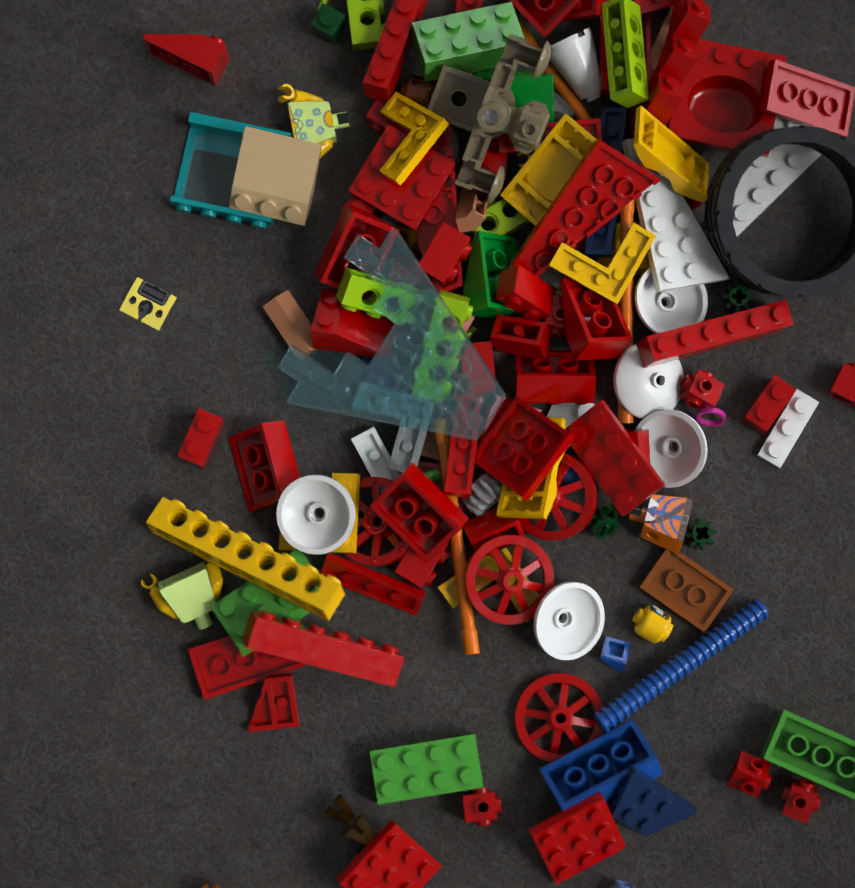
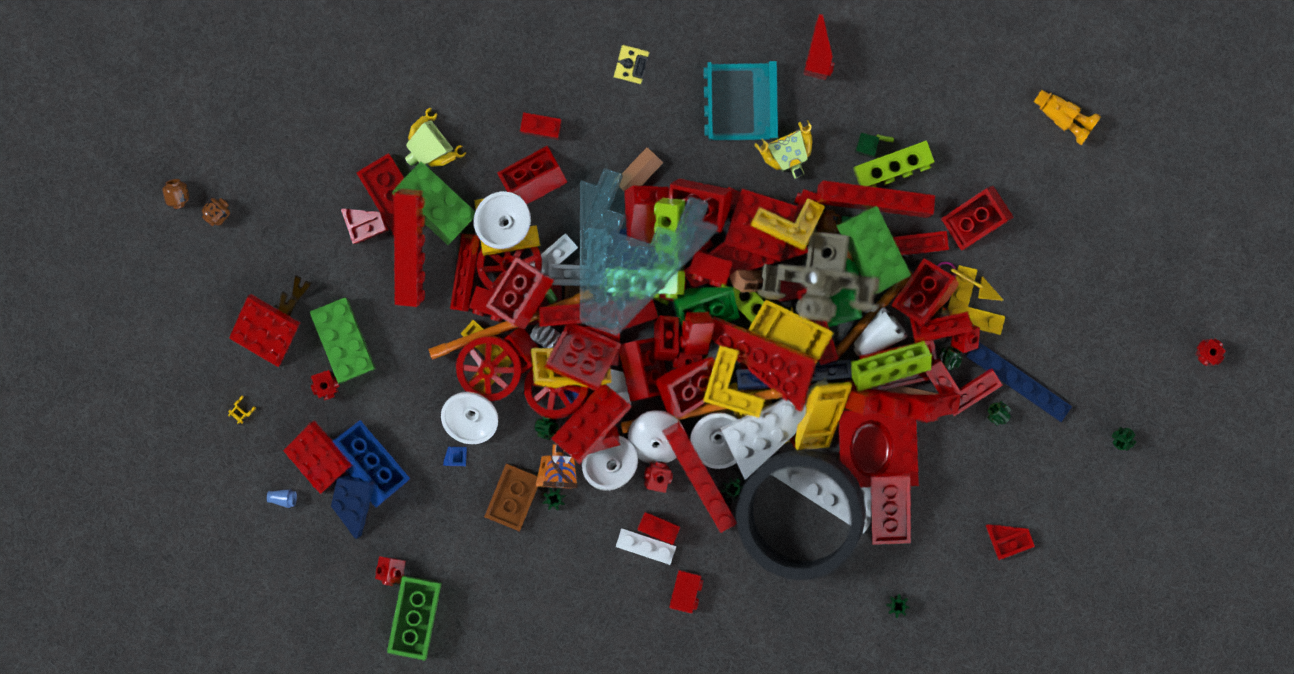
camera: 80 degrees right, 5 degrees up
(275, 176) = (740, 134): tan slope -> none
(321, 602) = (438, 238): yellow brick -> none
(410, 237) = (716, 239): dark brown tile -> none
(550, 716) = (419, 406): red wheel -> none
(652, 624) = (481, 478): yellow head -> none
(681, 665) = (457, 505): blue piece -> none
(711, 410) = (644, 488): dark pink piece -> none
(800, 808) = (380, 610): red brick -> none

